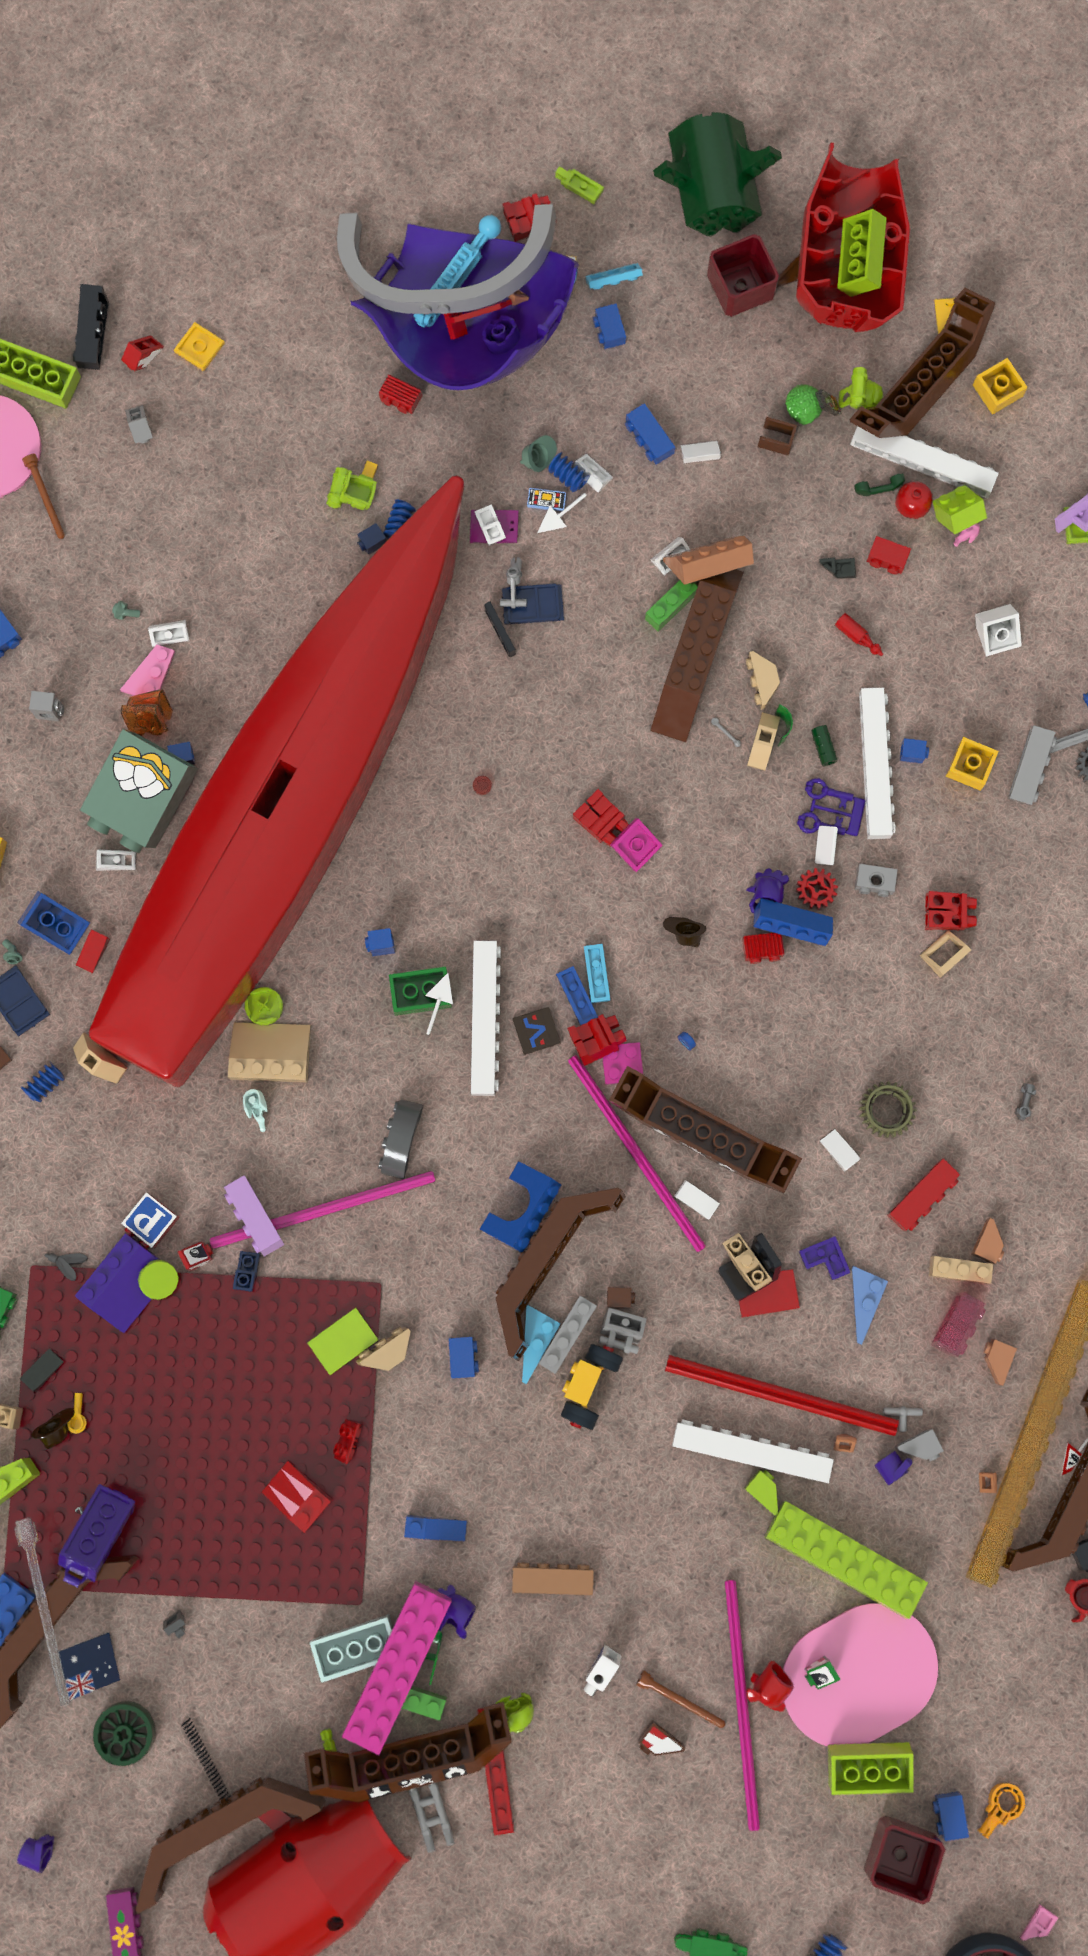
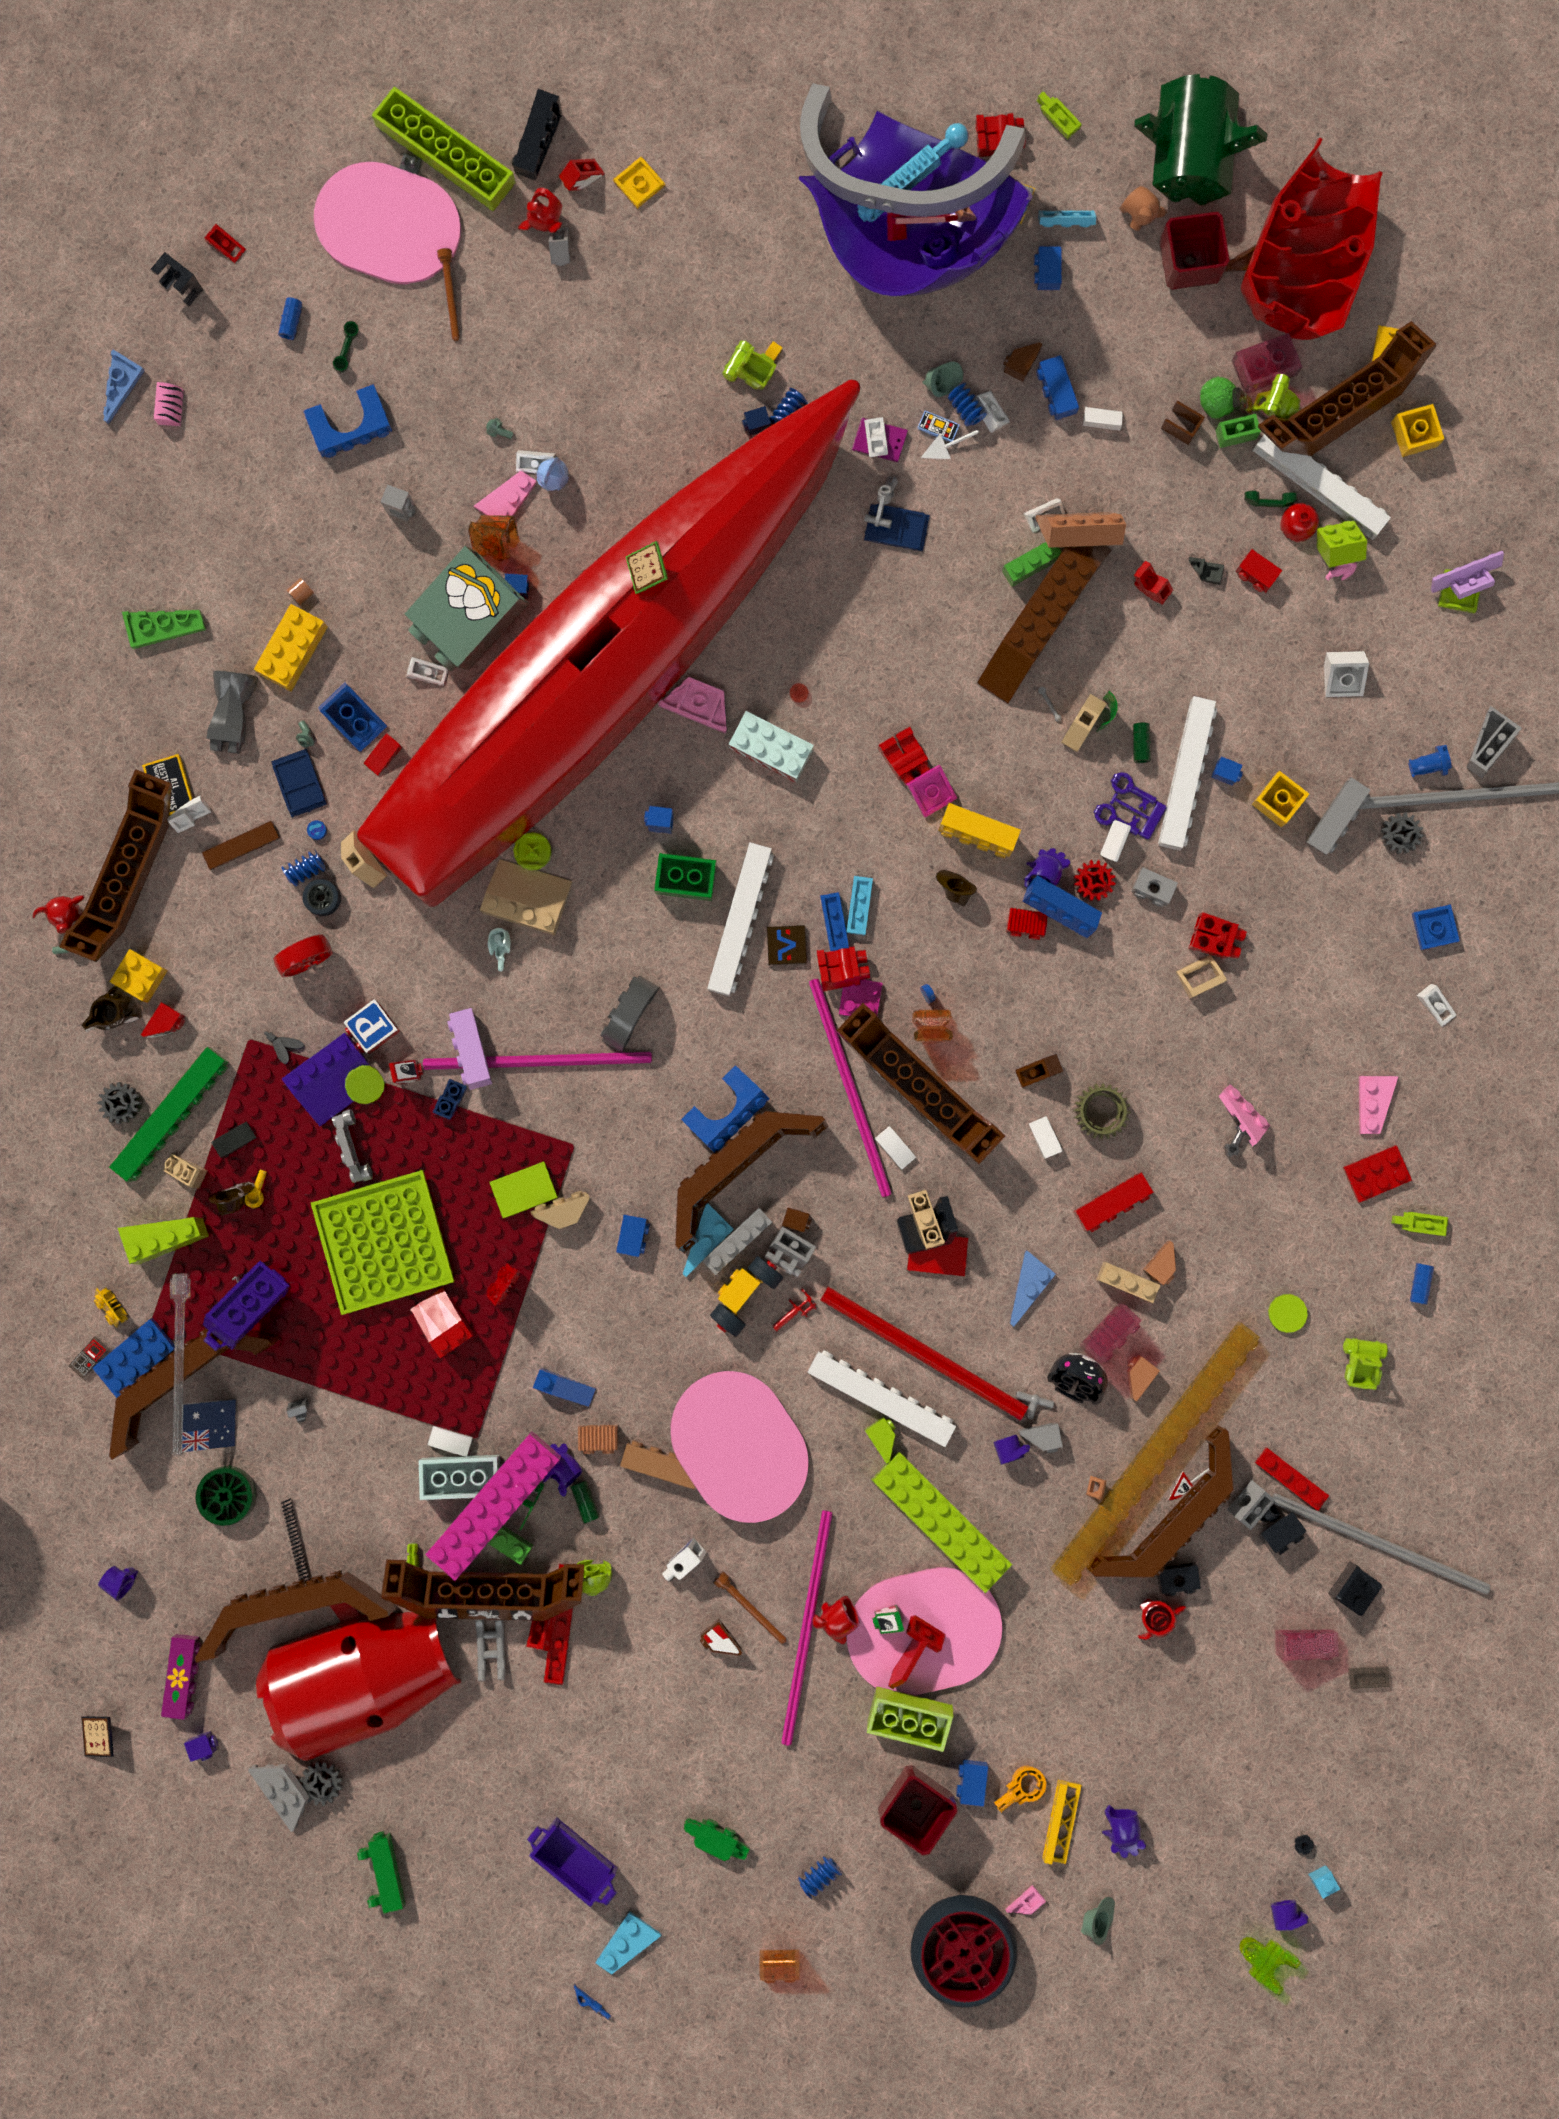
camera: 15 degrees right, 5 degrees up
(46, 1042) = (316, 830): none -> blue tile
(64, 1097) = (321, 887): none -> wheel
(64, 1168) = (302, 954): none -> red piece
(113, 401) = (543, 217): none -> red piece
(160, 1355) = (349, 1154): none -> light grey plate
(188, 640) = (552, 474): none -> light blue helmet
(216, 1432) = (382, 1242): none -> lime plate
(306, 703) = (646, 567): none -> piece
(335, 1614) = (449, 1441): none -> white slope
(387, 820) = (699, 703): none -> bright pink wing
(400, 394) = (823, 283): red brick -> none
(441, 992) = (705, 884): white piece -> none
(469, 843) = (771, 746): none -> light aqua brick
(478, 1787) = (540, 1635): none -> red slope
(482, 1570) = (598, 1438): none -> nougat brick
(486, 1638) = (584, 1501): none -> dark green axle
(499, 629) = (857, 544): black tile -> none
(608, 418) = (1021, 361): none -> reddish brown slope
(625, 1539) = (739, 1446): none -> bright pink tile
(642, 1389) = (794, 1311): none -> red piece
(683, 248) = (1142, 207): none -> nougat piece
(692, 870) = (979, 830): none -> yellow brick
(700, 1071) = (932, 1026): none -> clear orange piece
(764, 678) = (1101, 660): tan slope -> none
(791, 594) = (1151, 584): none -> red brick
(815, 1086) = (1039, 1070): none -> reddish brown slope
(829, 1253) = (1007, 1232): dark purple plate -> none
(831, 430) = (1237, 430): none -> bright green brick
(836, 361) = (1262, 362): none -> clear pink brick
(845, 1438) = (974, 1410): nougat slope -> none
(857, 633) = (1205, 641): red wheel -> none
(860, 1679) = (923, 1636): none -> red piece
(862, 253) = (1318, 259): lime brick -> none
(940, 1367) = (1081, 1368): none -> black cylinder
(1031, 1077) = (1249, 1118): none -> bright pink wing
(1045, 1832) = (1055, 1822): none -> yellow fence

